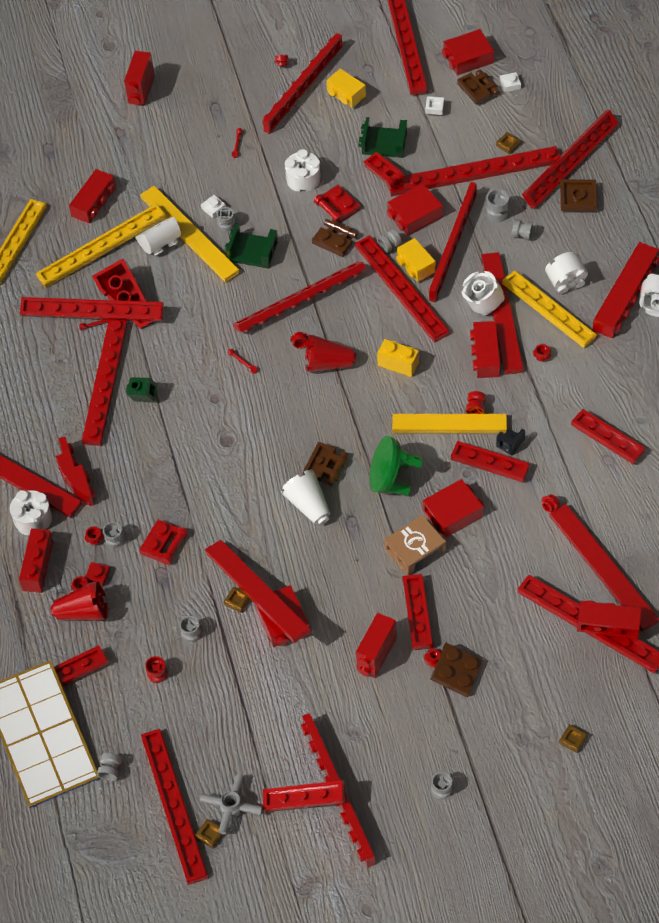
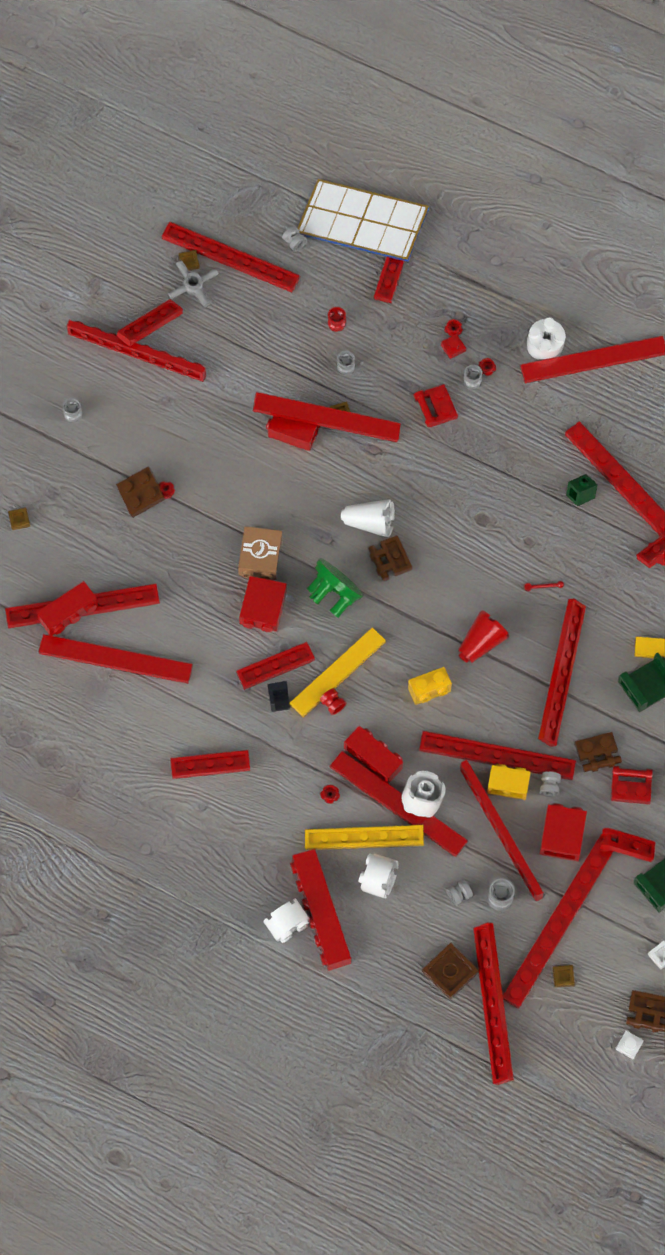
camera: 130 degrees right, 10 degrees up
(36, 560) = (501, 314): red brick -> none
(74, 474) = (546, 390): red slope -> none
(82, 604) = (431, 313): red cone -> none
(299, 340) = (521, 637): red plate -> none
(376, 645) = (207, 453): red brick -> none
(417, 612) = (209, 509): red plate -> none
(550, 503) = (198, 670): red plate -> none

